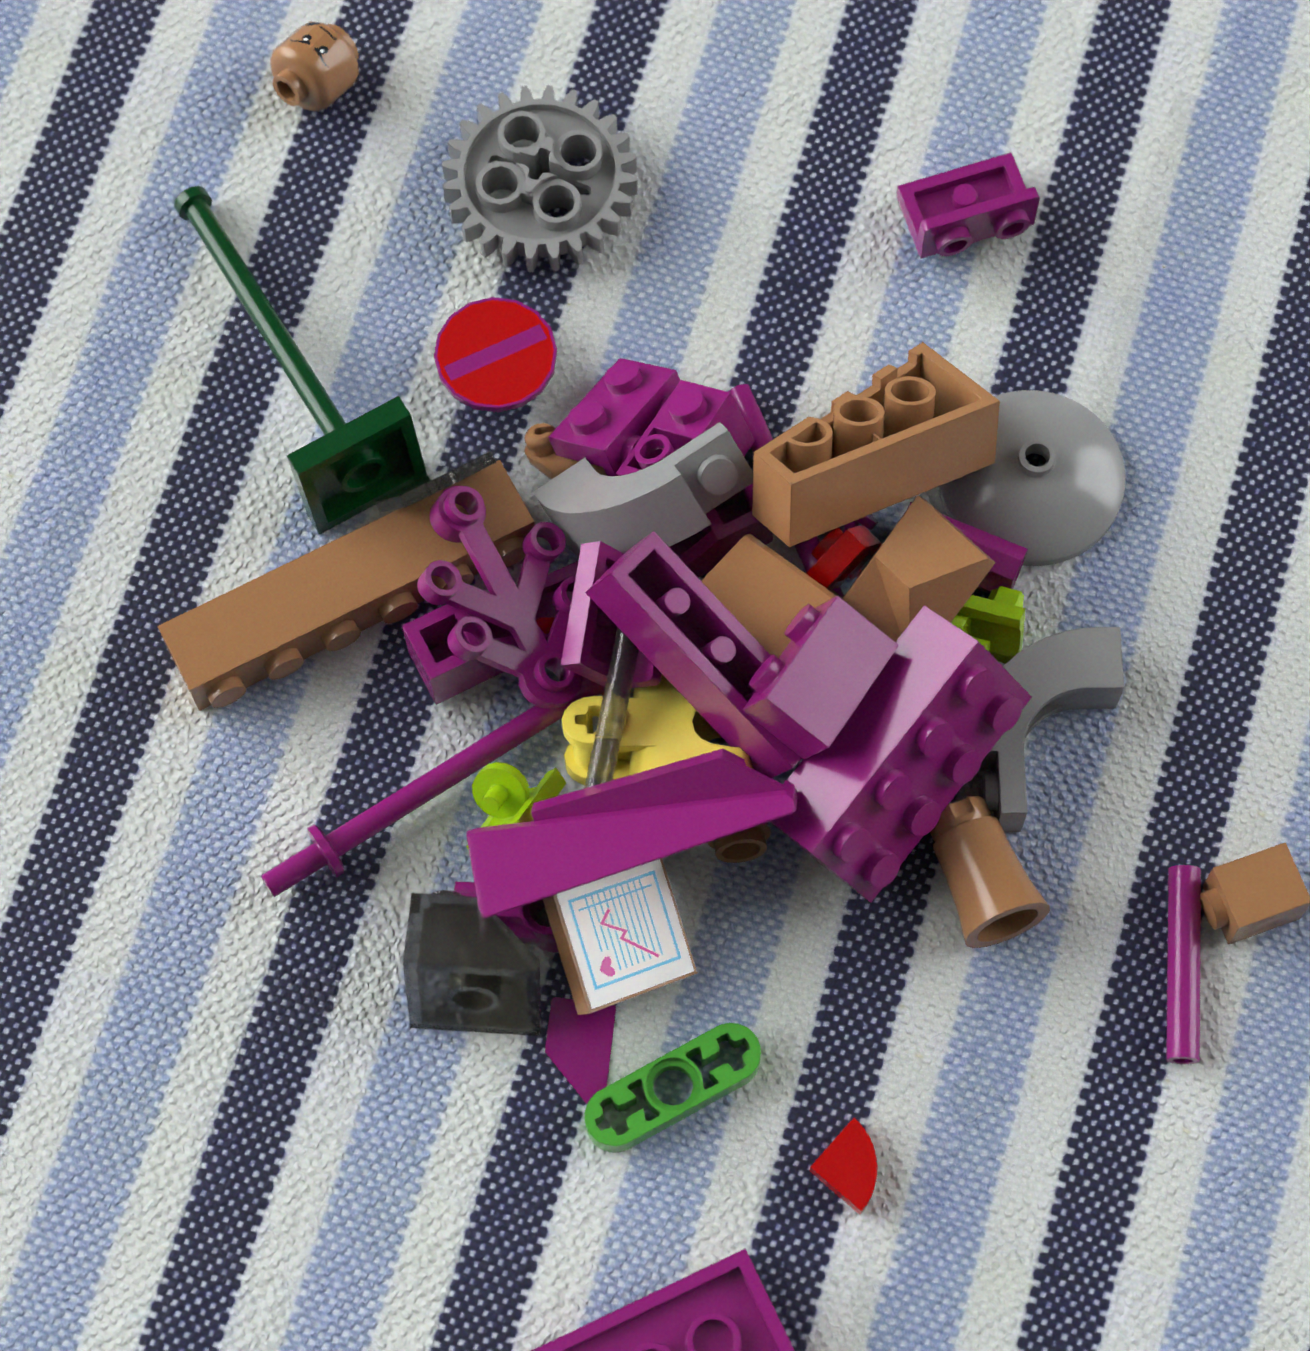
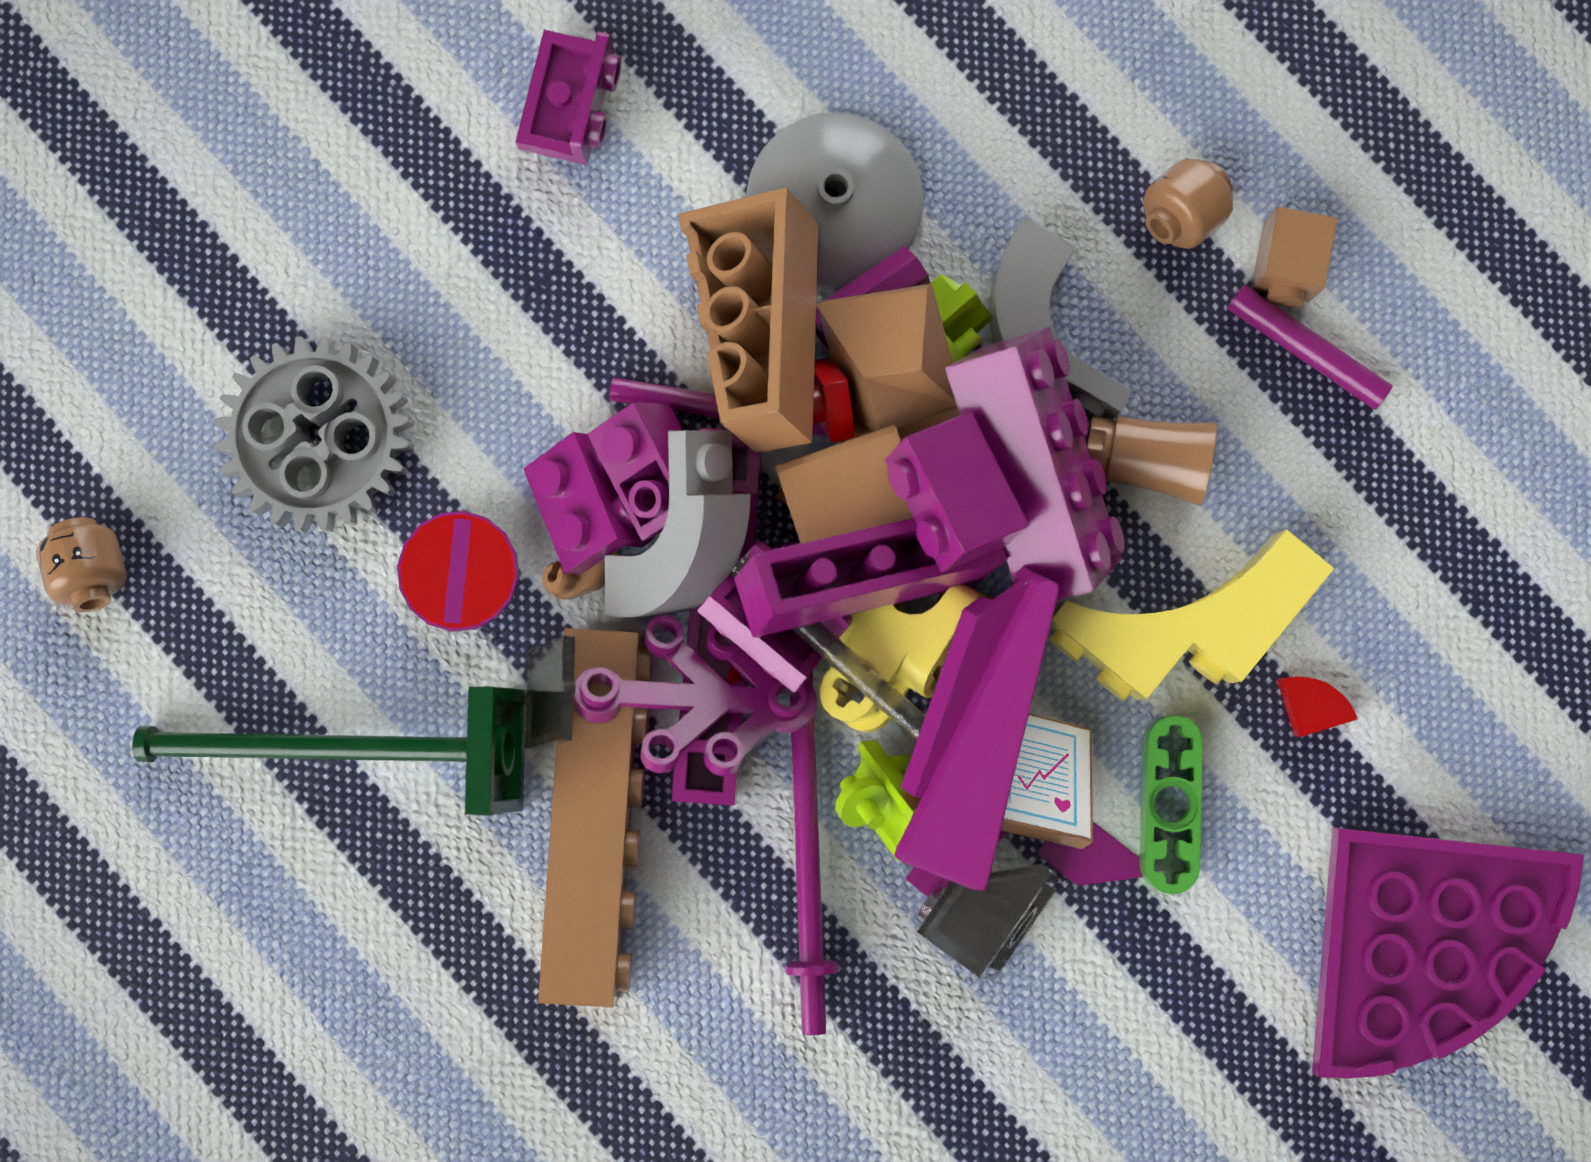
camera: 60 degrees left, 15 degrees up
(869, 1033) = (1222, 630): none -> light yellow arch
(1237, 771) = (1188, 202): none -> medium nougat head

